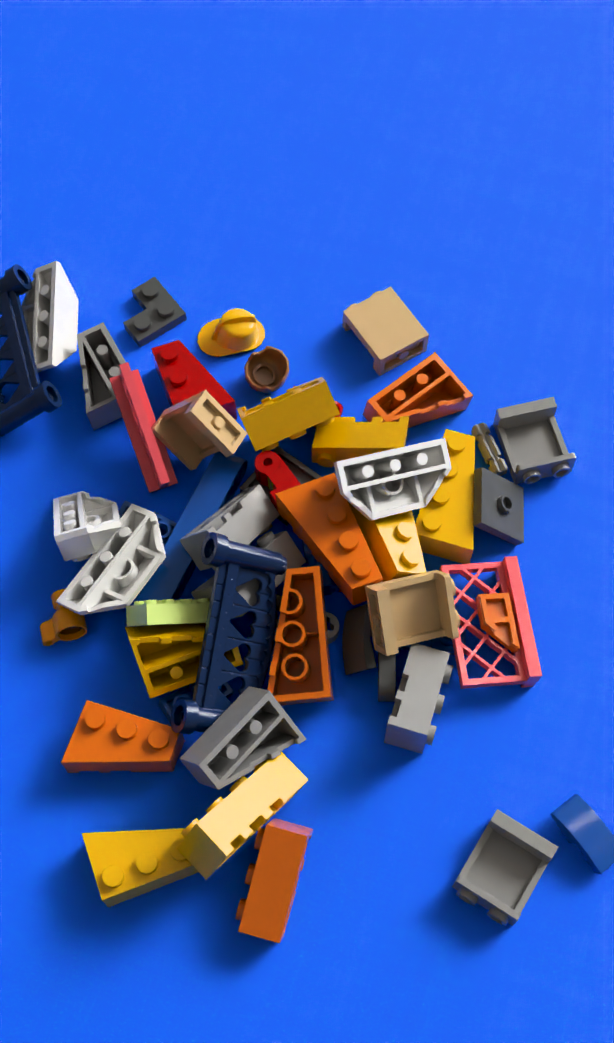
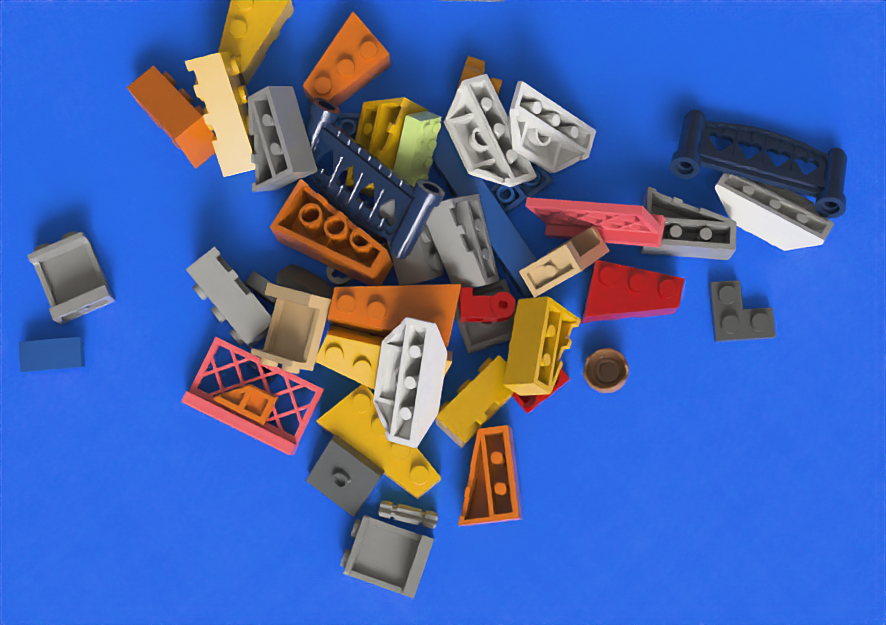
camera: 120 degrees right, 15 degrees up
(231, 334) = (670, 370): yellow piece -> none
(386, 329) = (585, 503): tan panel -> none

